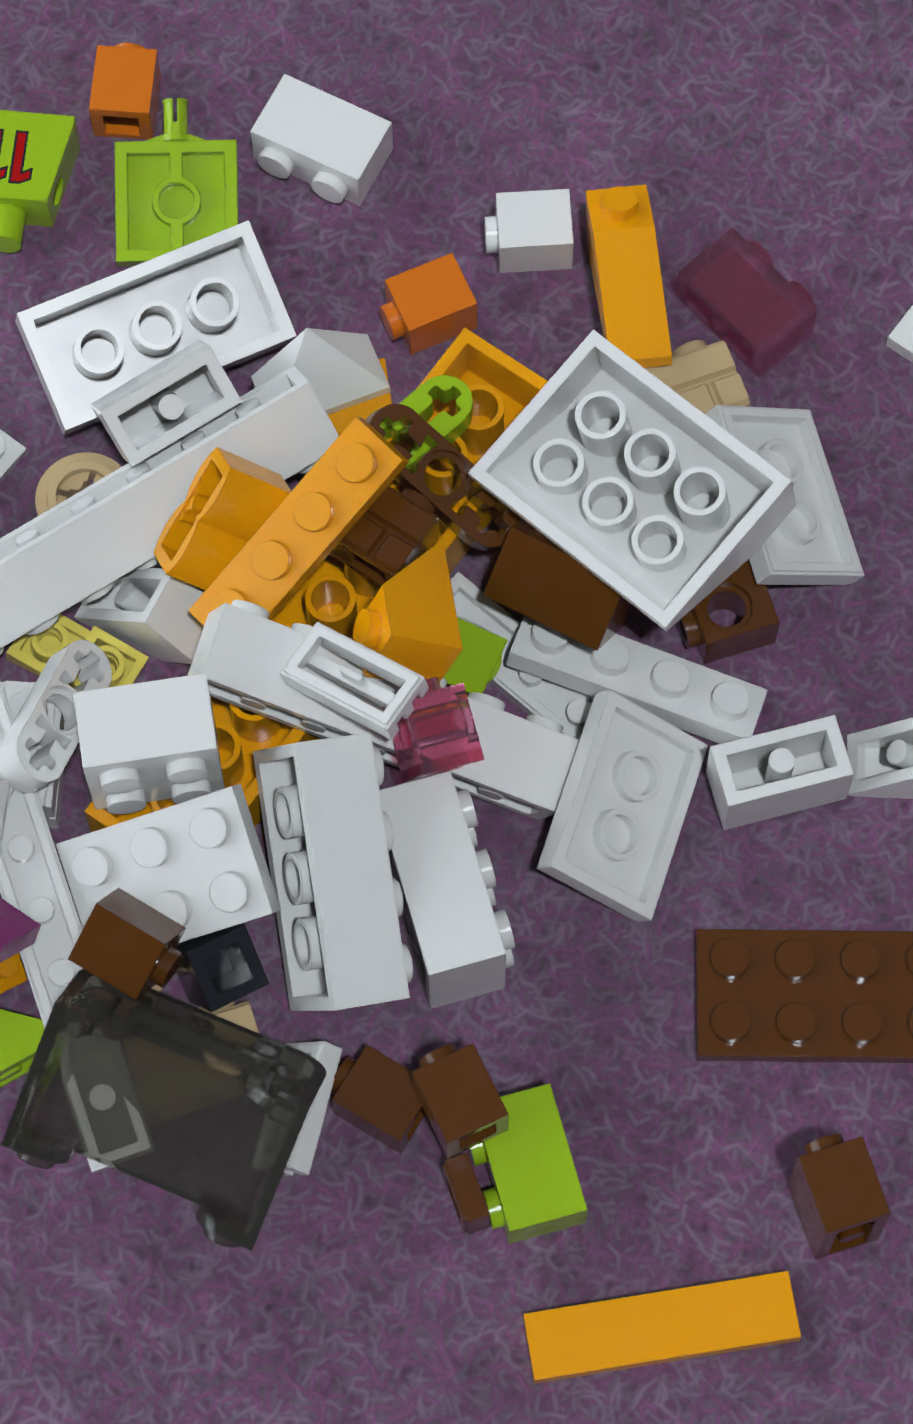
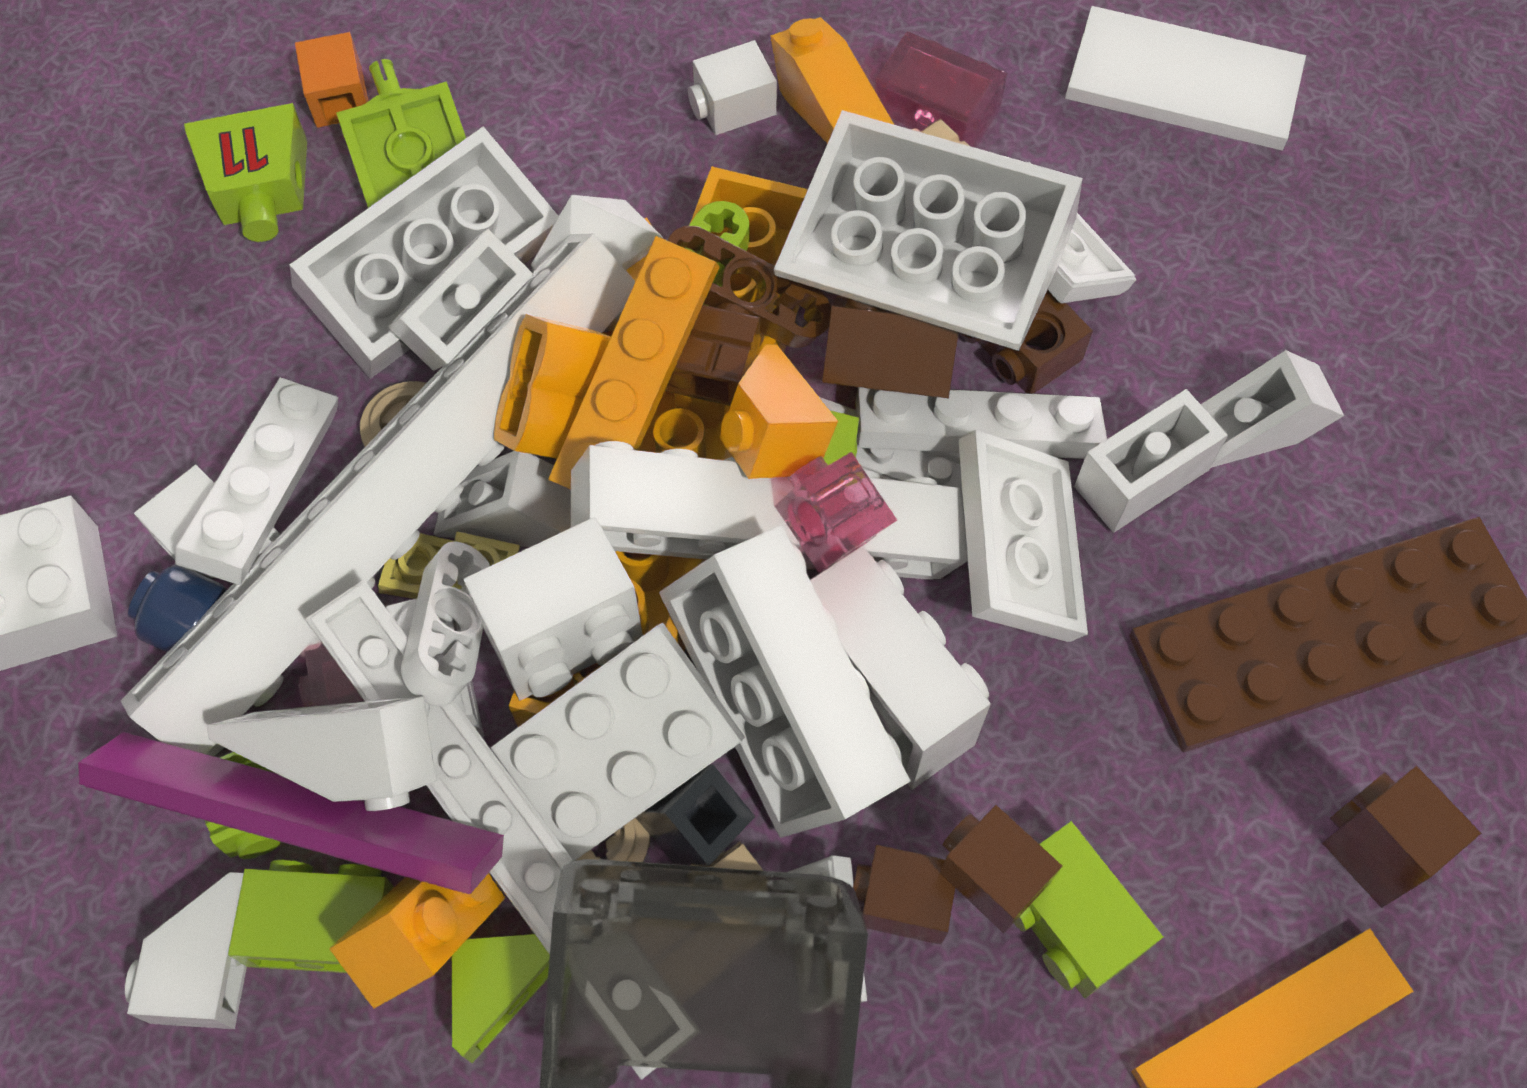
camera: 20 degrees left, 5 degrees down
(129, 944) = (604, 824): reddish brown brick -> none
(321, 141) = (521, 69): white brick -> none
(396, 705) = (743, 490): white tile -> none
(428, 304) = (666, 169): orange brick -> none
(466, 1194) = (1029, 963): reddish brown tile -> none

